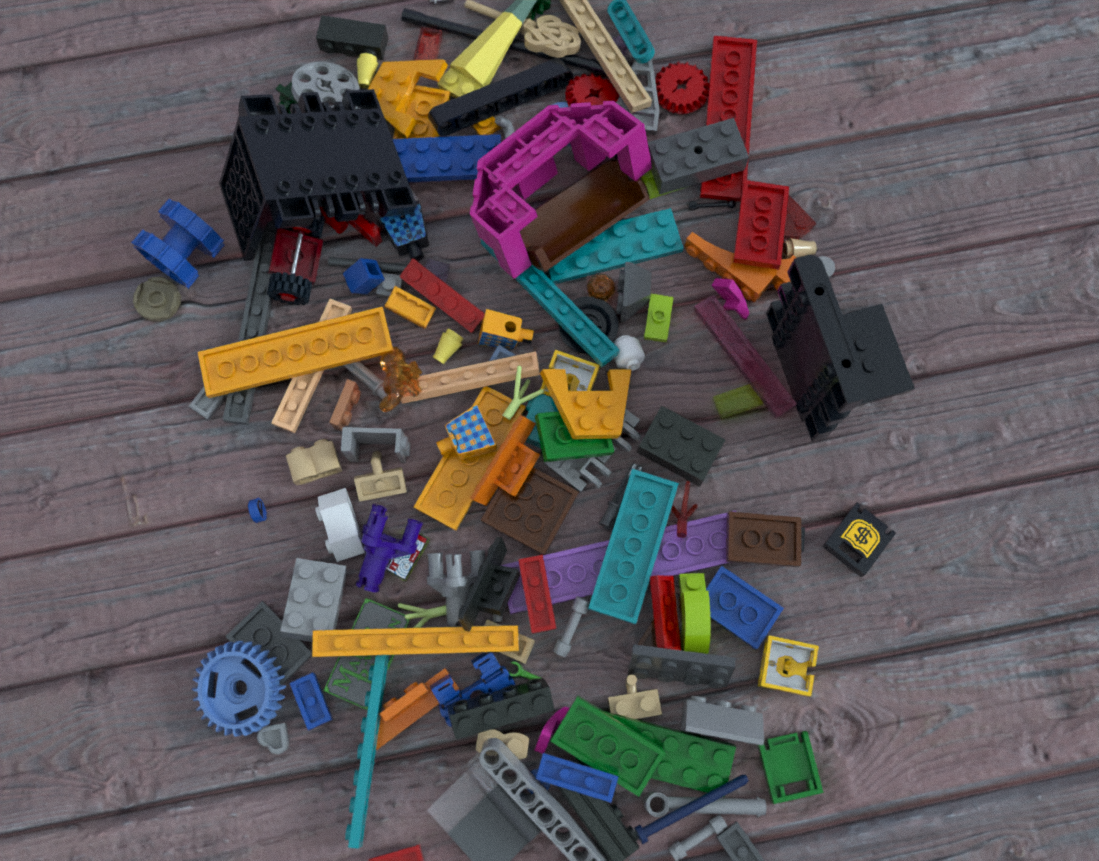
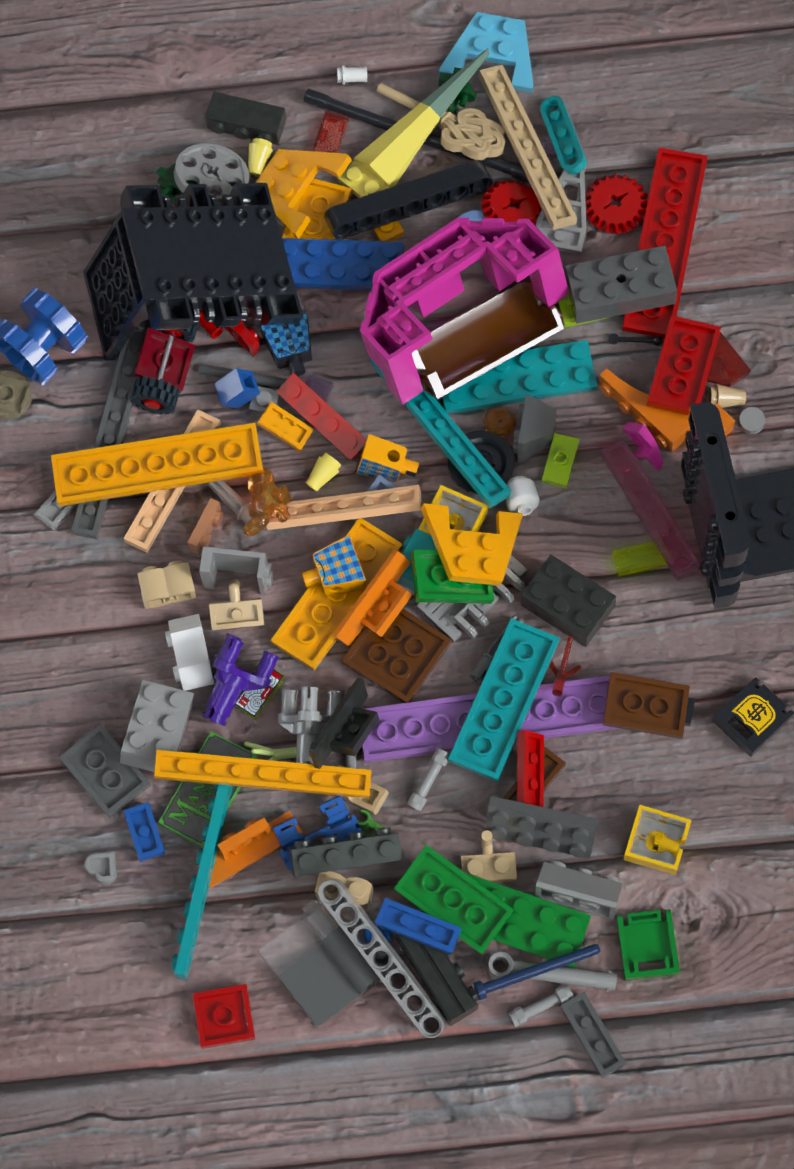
camera: 10 degrees right, 5 degrees down
(227, 702) = (64, 789): medium blue gear -> none
(257, 510) = (101, 630): blue tile -> none
(506, 126) = (412, 233): light grey bar -> none
(518, 400) = (395, 534): yellowish green plant -> none
(537, 594) = (395, 740): red plate -> none
(549, 729) = (387, 890): dark pink slope -> none
(695, 613) = (562, 773): lime arch -> none
(741, 608) = (612, 776): blue plate -> none

